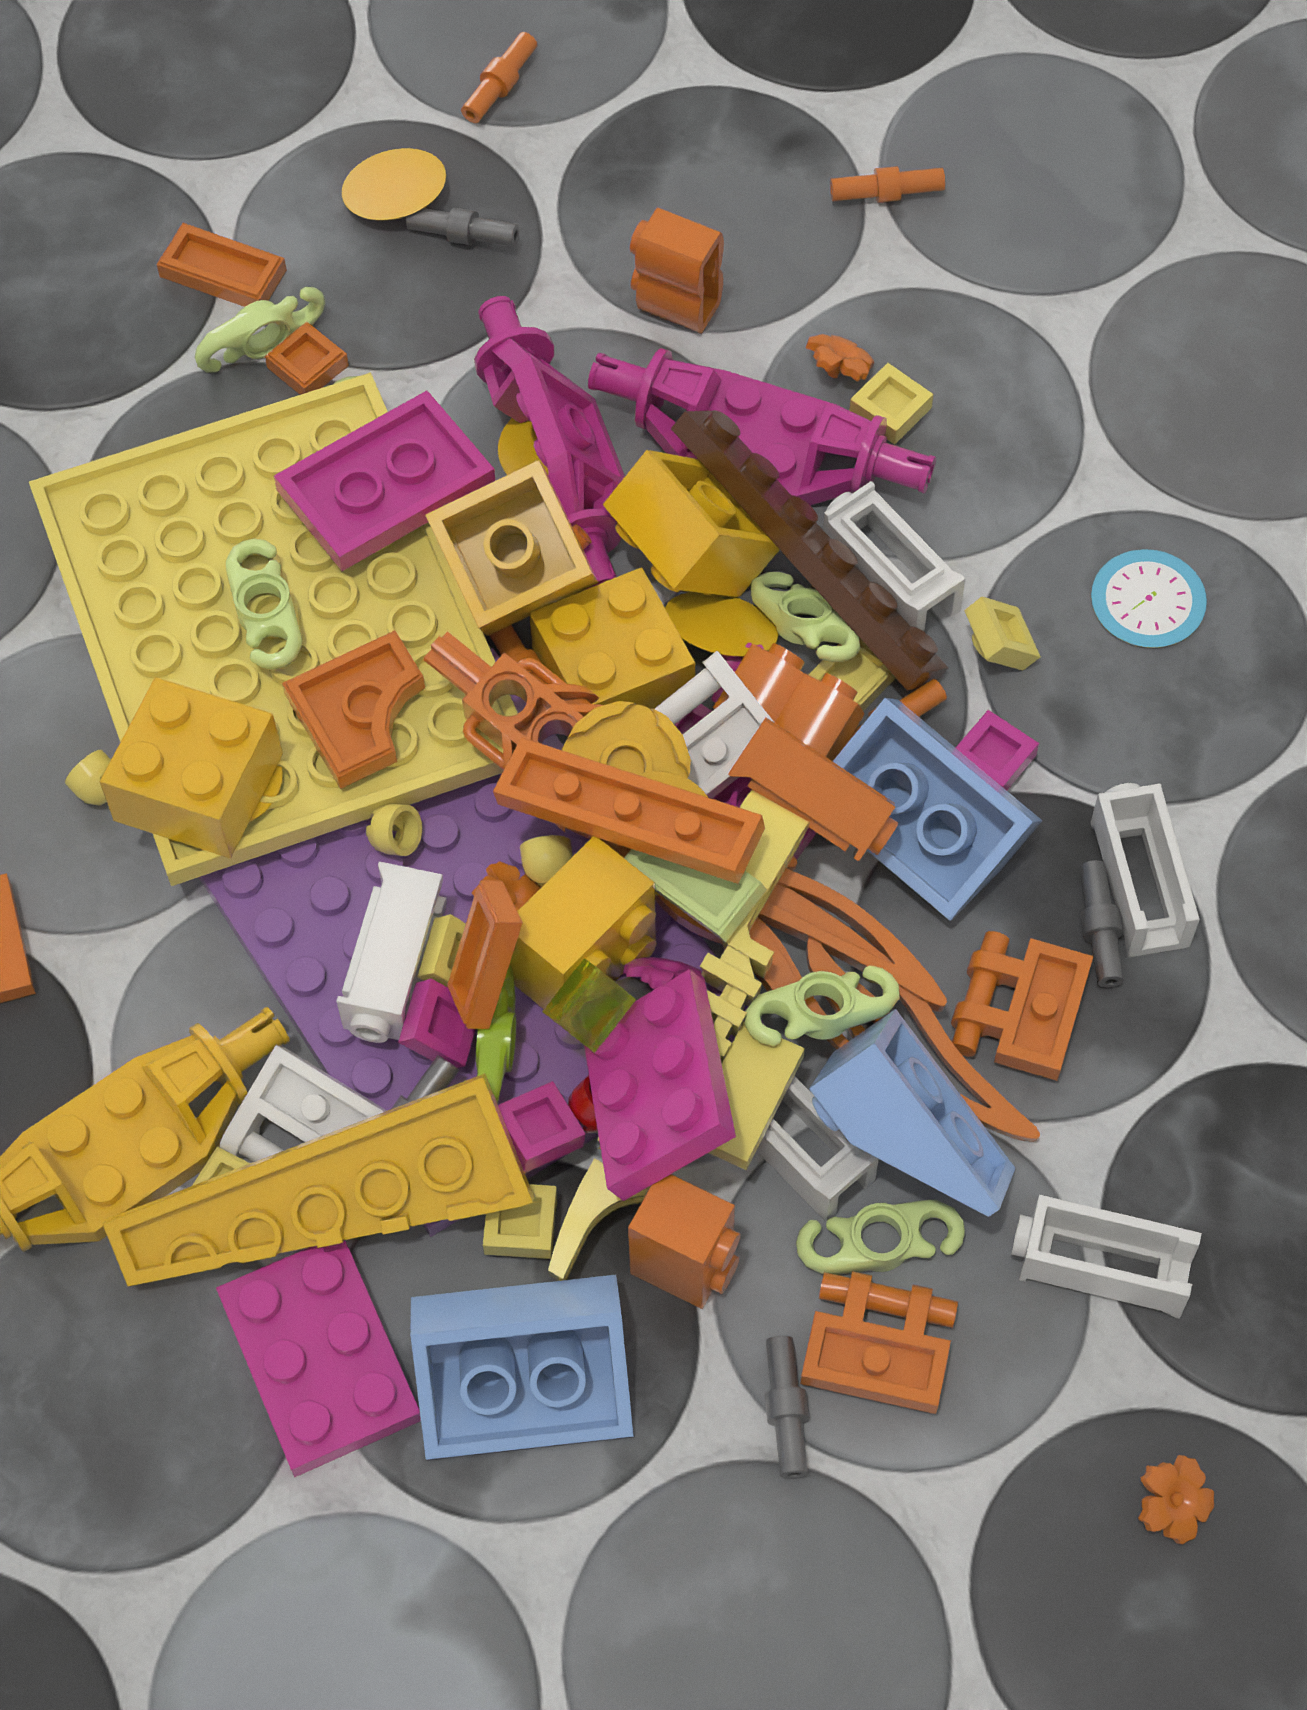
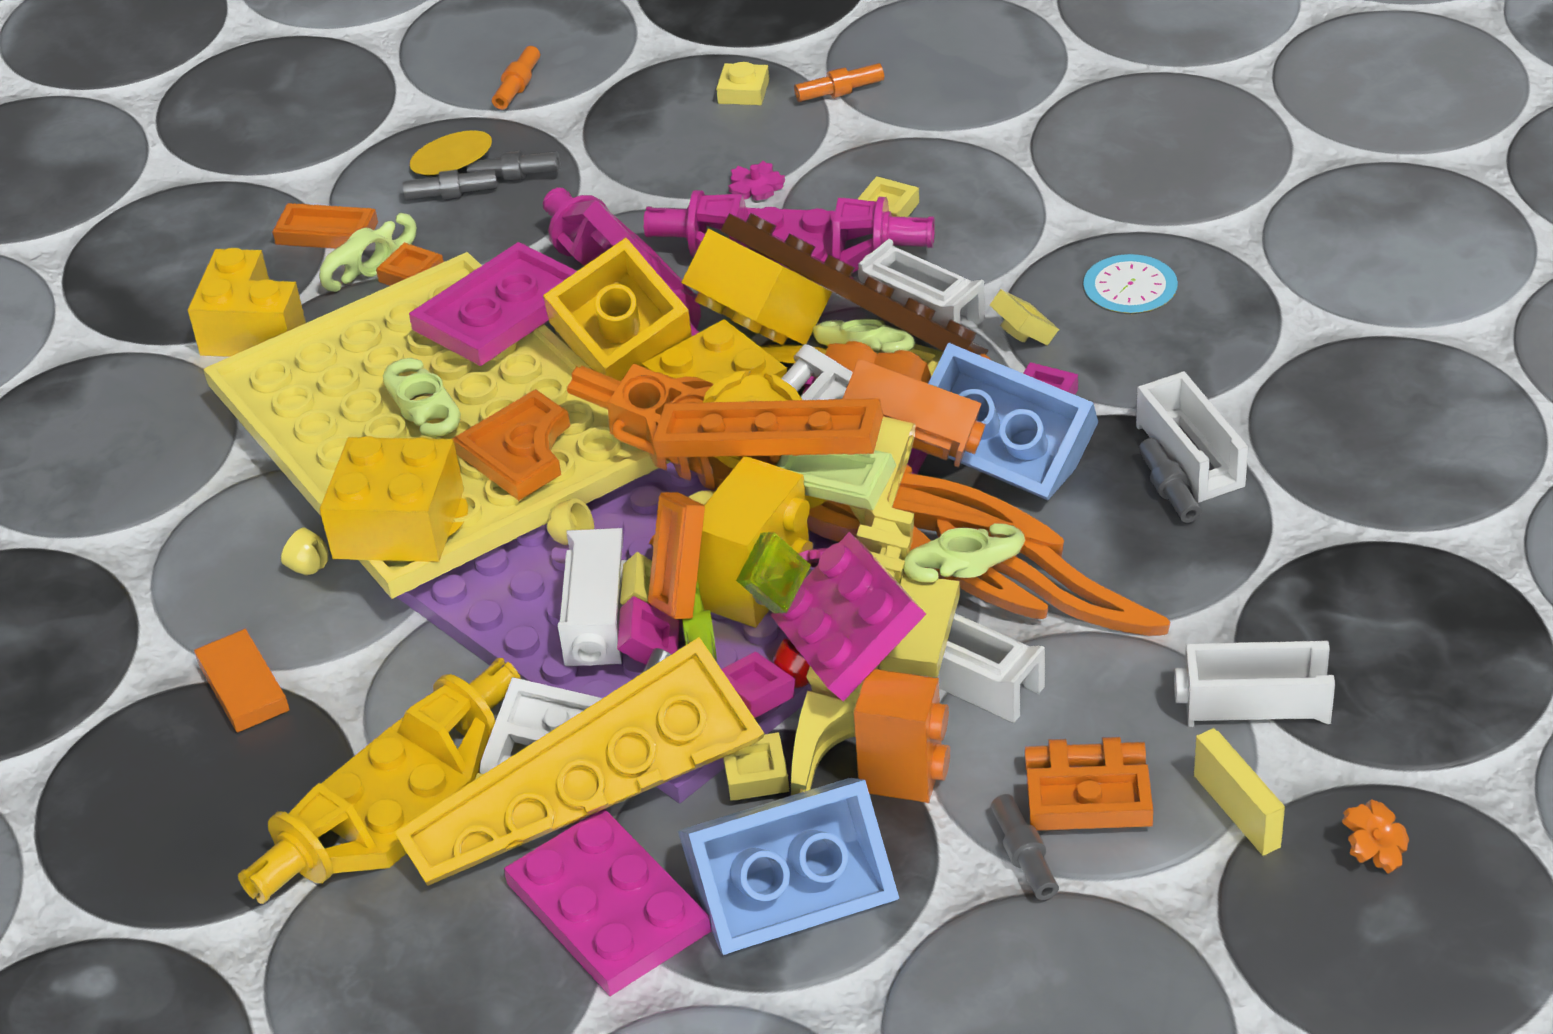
camera: 10 degrees left, 20 degrees down
(90, 386) = (240, 305): none -> yellow brick
(381, 237) = (450, 184): none -> flat silver bar
(677, 269) = (694, 146): orange brick -> none
(746, 322) = (758, 182): none -> dark pink plant
(770, 155) = (742, 84): none -> light yellow plate
(840, 355) = (836, 184): orange plant -> none
(902, 1216) = (1078, 700): yellowish green piece -> none
(908, 1113) = (1051, 603): light blue slope -> none
(1042, 1007) = (1142, 540): orange plate -> none
(1042, 1401) = (1239, 791): none -> light yellow tile

